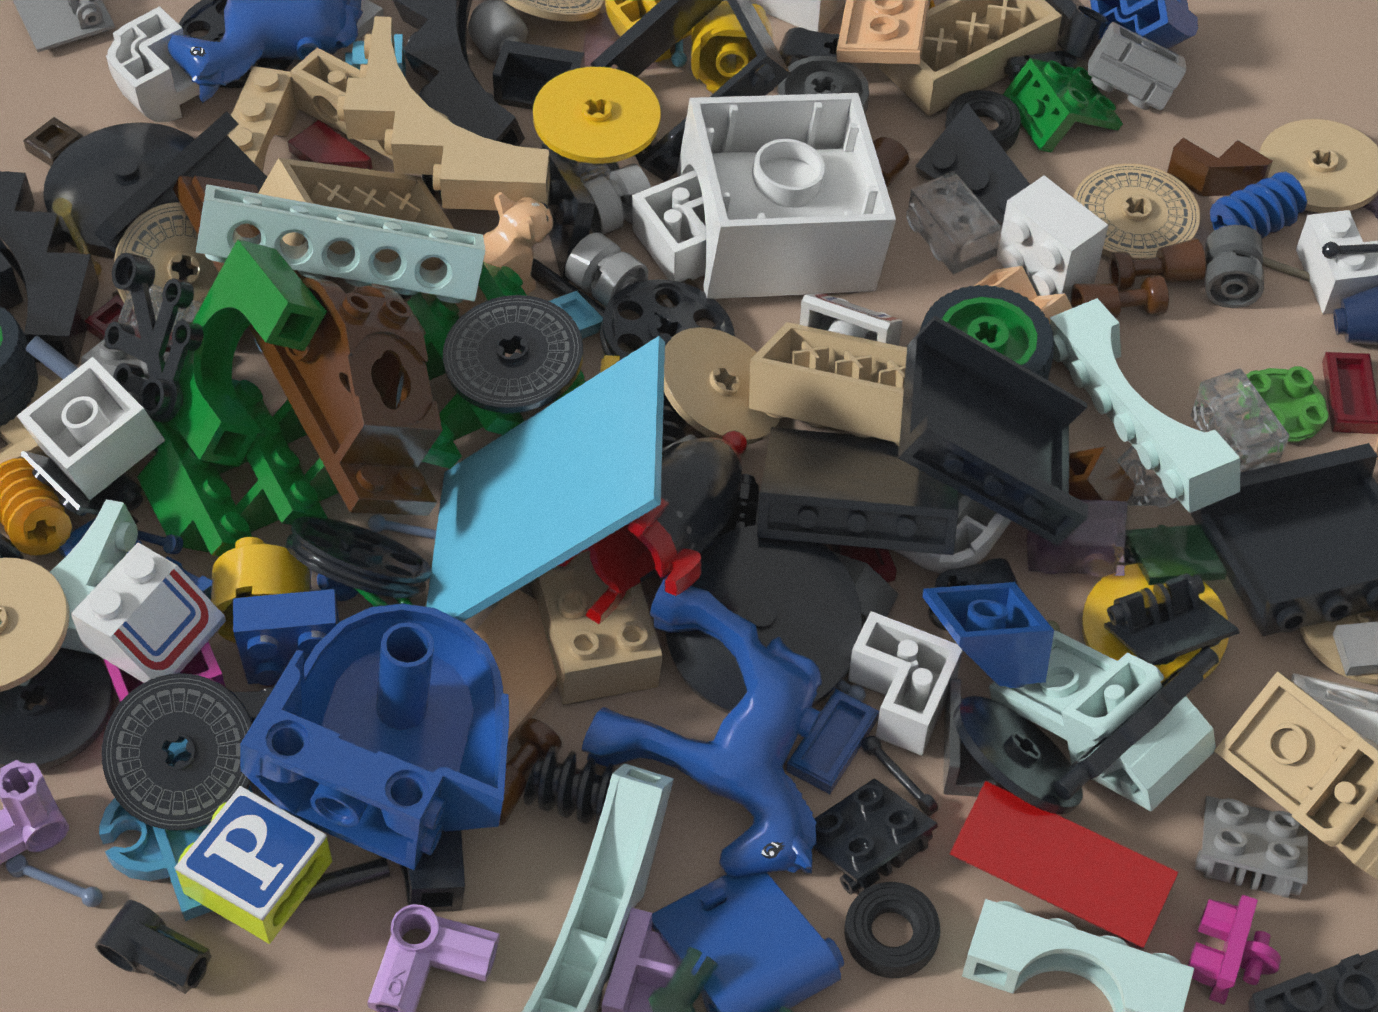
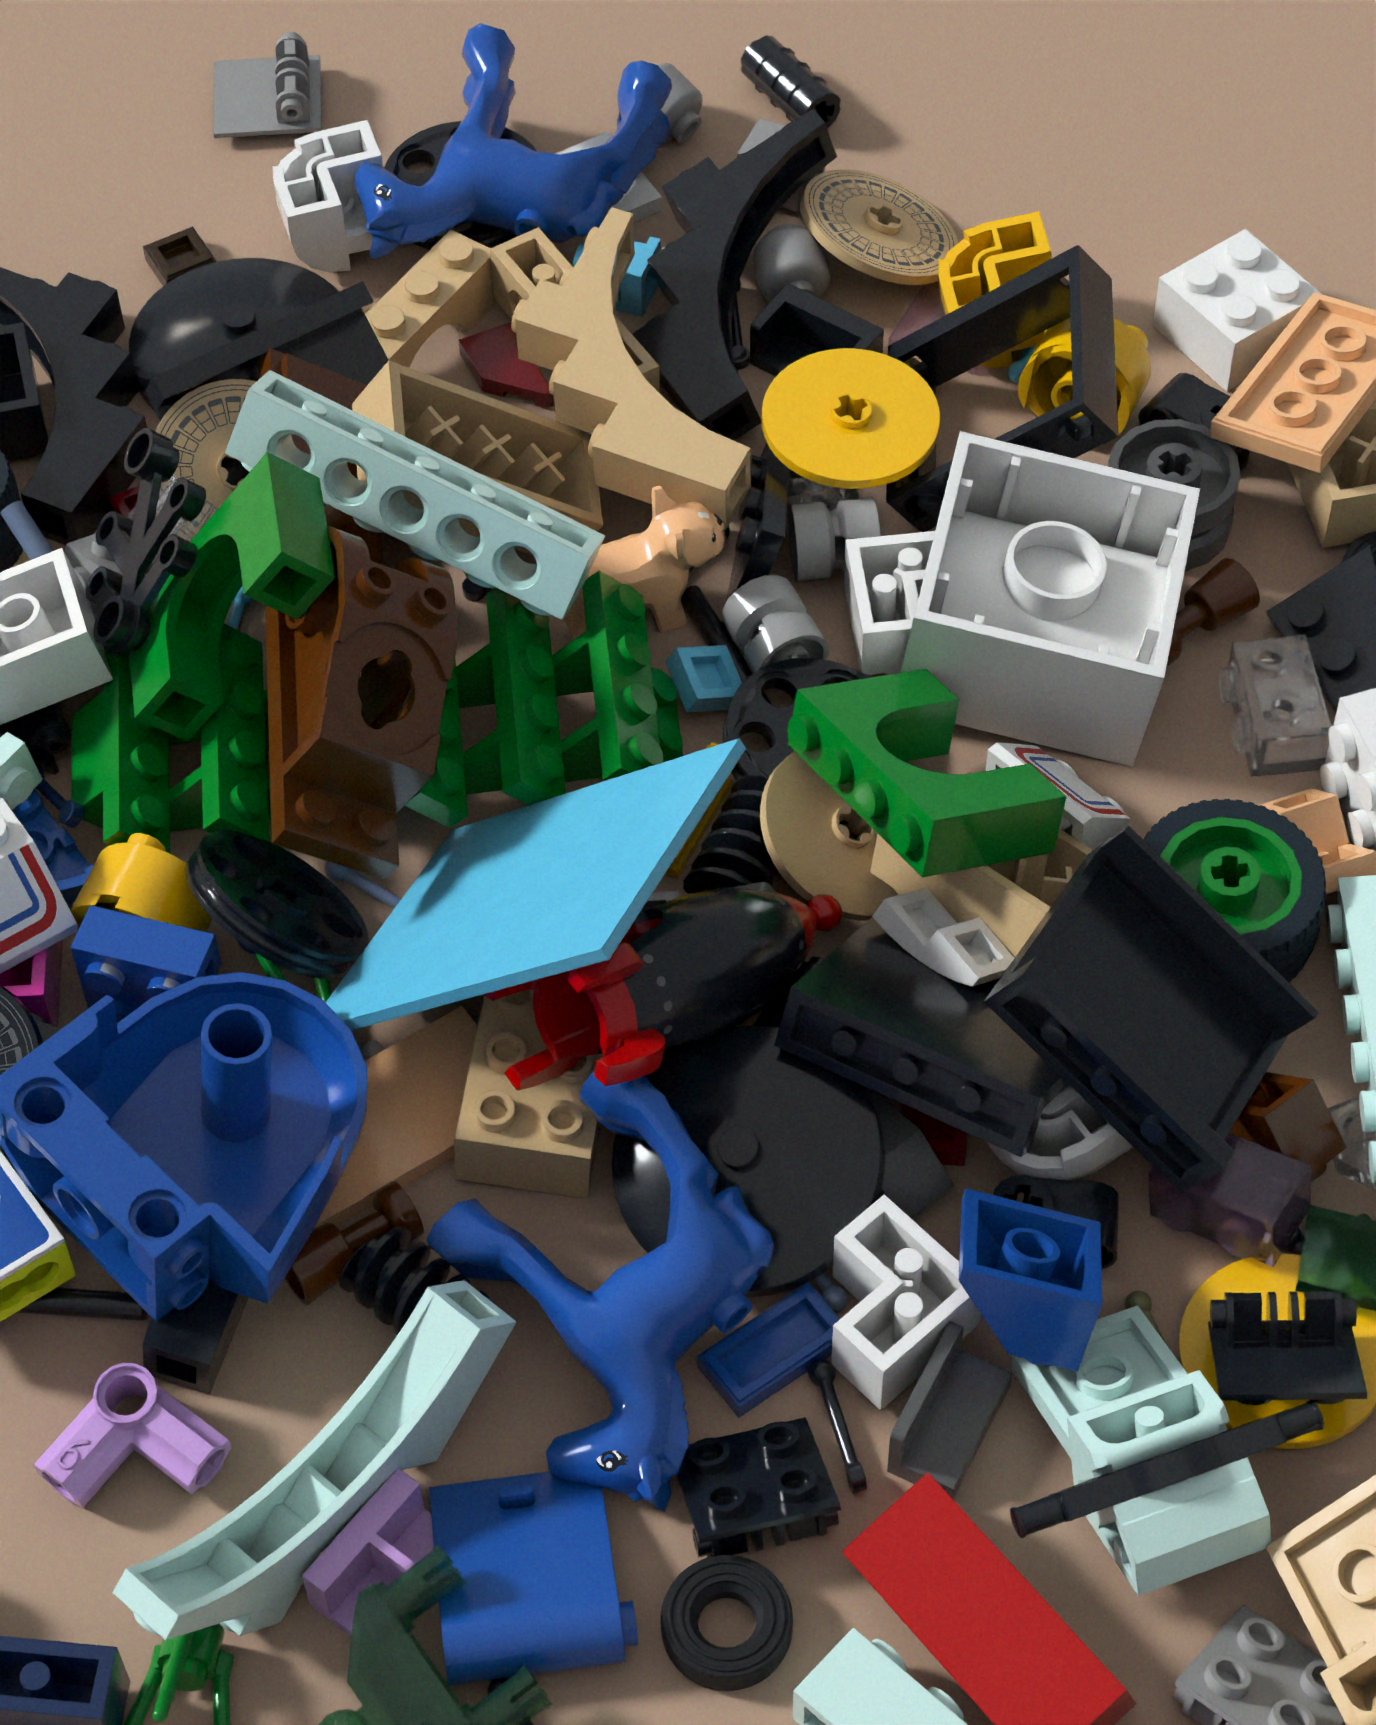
camera: 25 degrees right, 0 degrees up
(64, 208) = (143, 347): clear yellow hinge -> none
(524, 381) = (576, 744): black piece -> none
(719, 321) = (936, 821): none -> green arch
(842, 438) = (926, 930): none -> white slope
(1014, 753) = (986, 1449): black piece -> none

